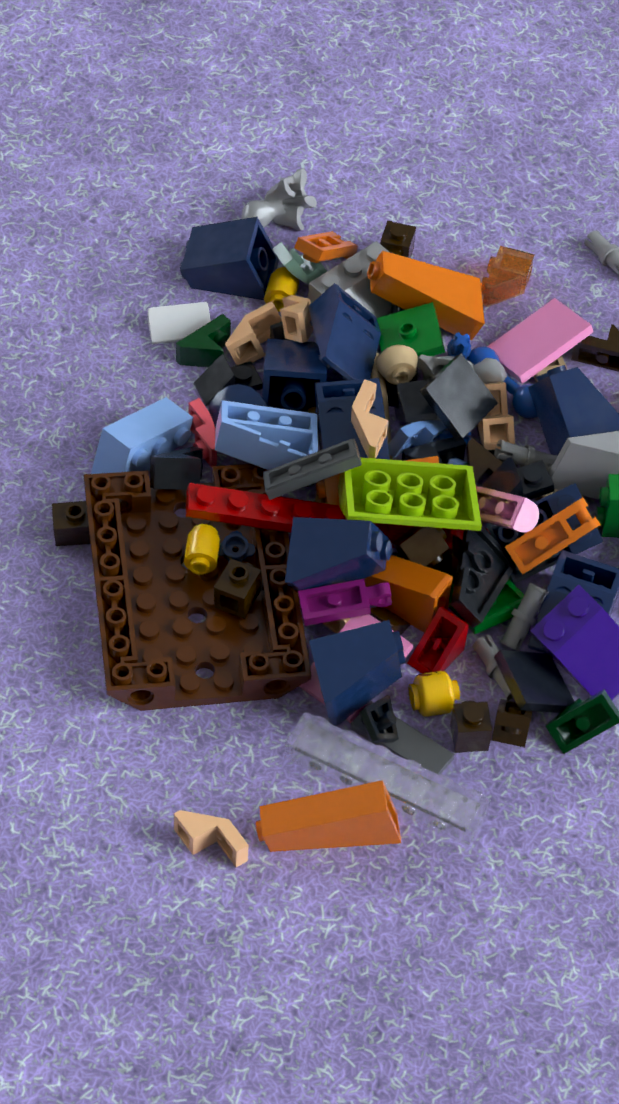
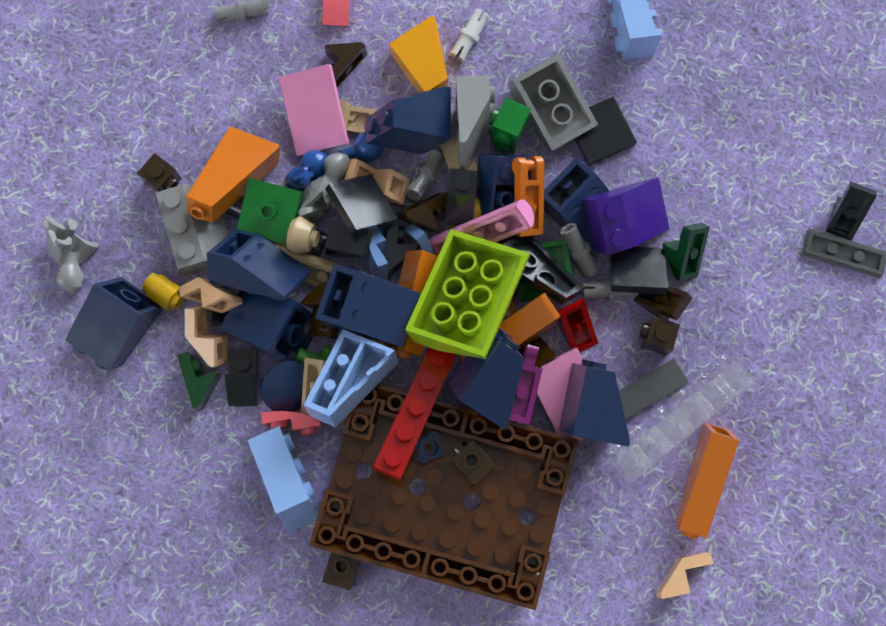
camera: 65 degrees left, 25 degrees up
(176, 321) = (161, 393): white slope -> none
(176, 469) = (331, 461): black slope -> none
(202, 549) = (423, 476): yellow brick -> none
(297, 265) = (152, 266): sand green slope -> none
(311, 468) = (406, 360): dark grey tile -> none
(325, 247) = (140, 237): orange plate -> none
(369, 427) = (396, 297): light nougat slope -> none
(380, 721) = (637, 404): black piece -> none
(433, 693) = (615, 349): yellow head -> none
(508, 275) = (229, 99): clear orange slope -> none

